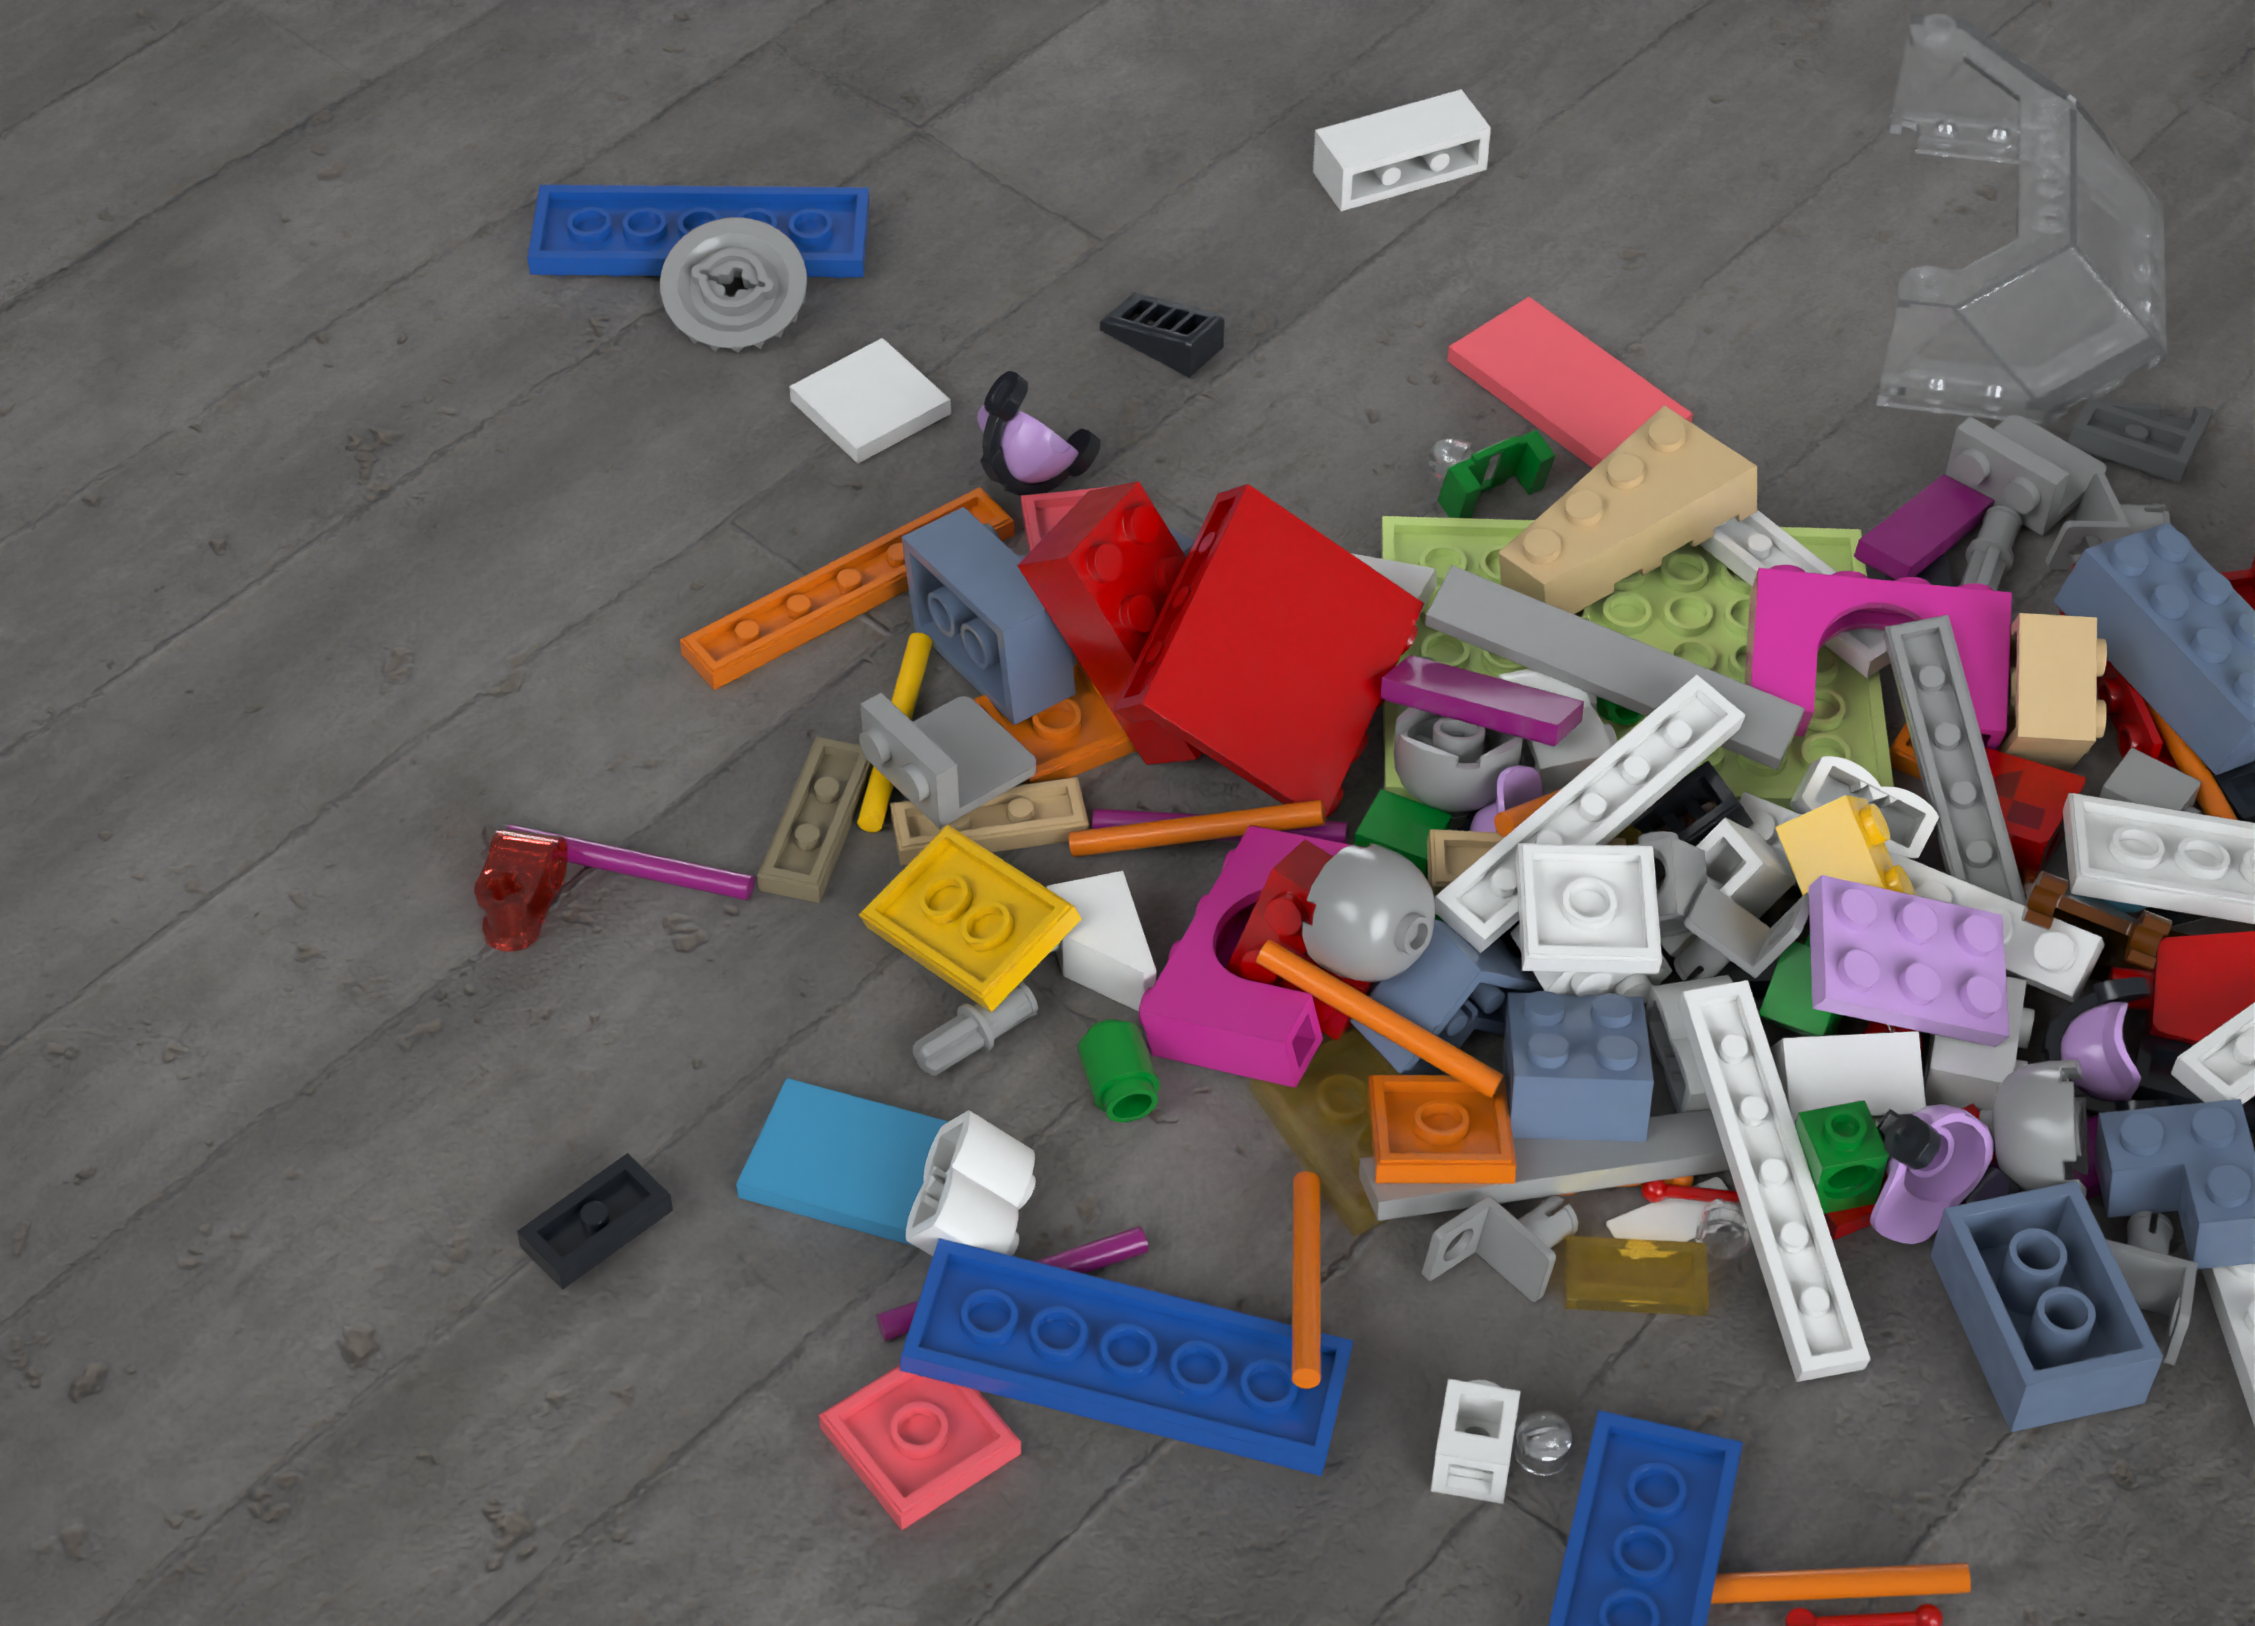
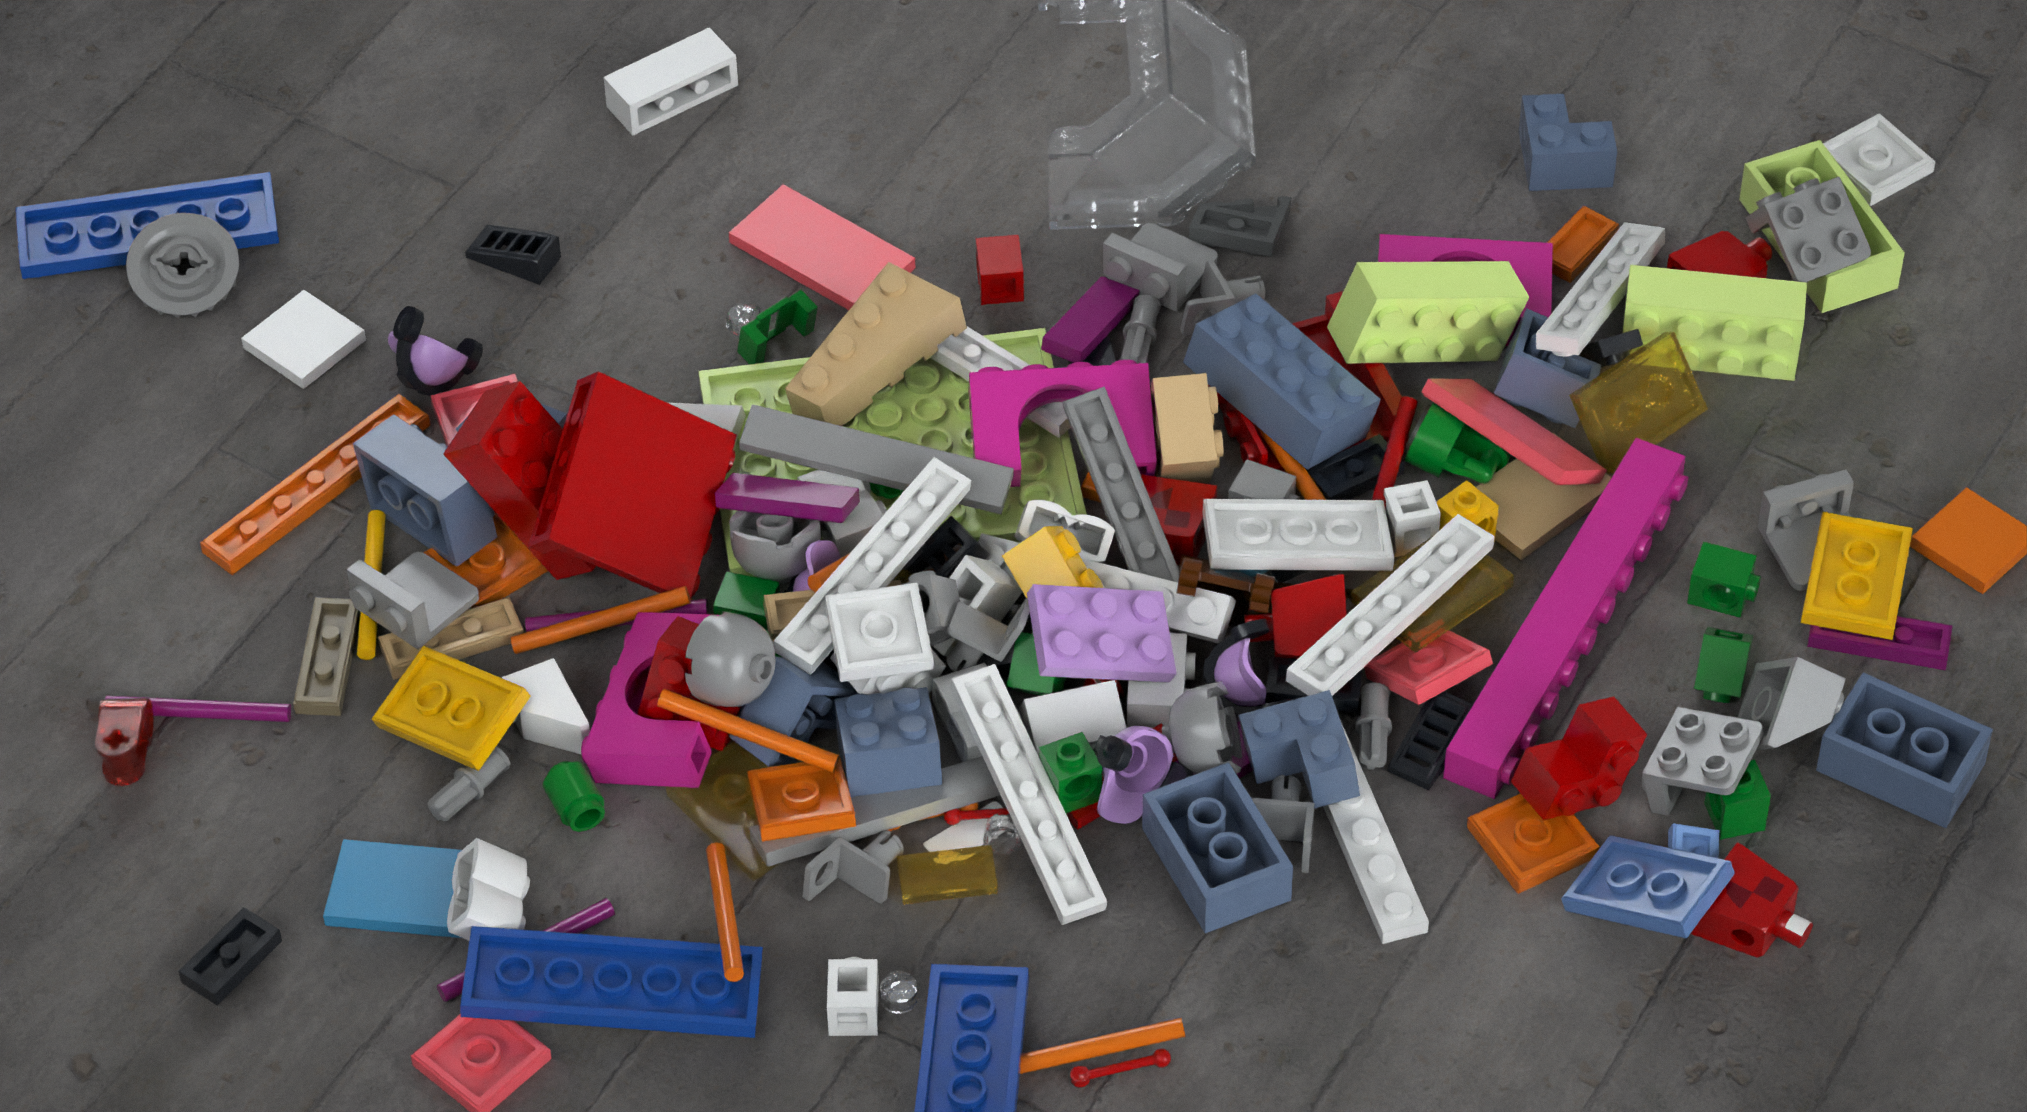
camera: 10 degrees left, 0 degrees up
(1806, 445) = (999, 269): none -> red brick

